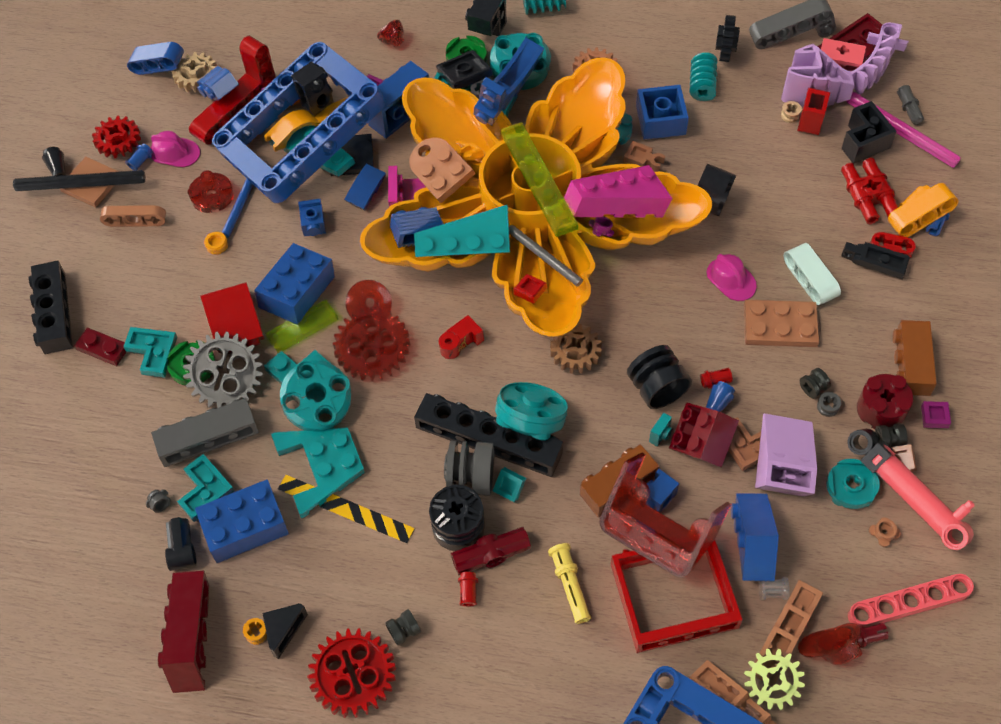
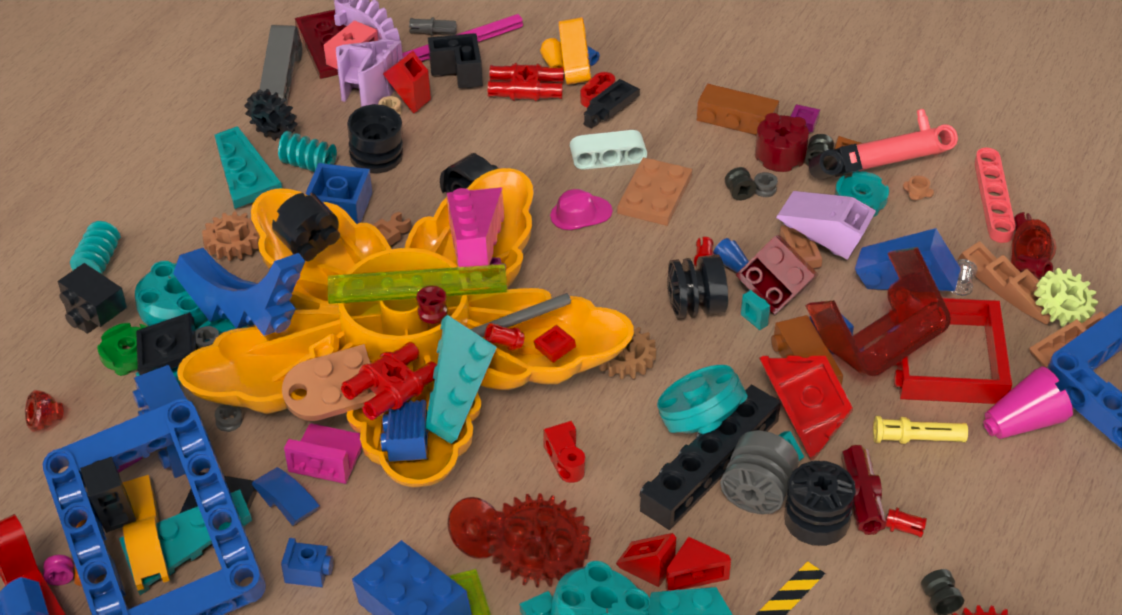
camera: 75 degrees left, 15 degrees down
(375, 419) = (649, 558): none -> red slope
(378, 447) = (697, 566): none -> red slope
(441, 184) = (389, 380): none -> red pin
(511, 188) = (431, 304): none -> dark red wheel
(521, 253) = (511, 338): none -> red pin
(562, 486) = (810, 398): none -> red wing
(578, 94) = (306, 225): none -> black brick
(621, 664) = (1029, 406): none -> dark pink cone
(672, 48) = (244, 167): none -> teal wing
(734, 111) = (375, 138): none -> black wheel
(803, 649) = (1036, 266): none -> dark red pin

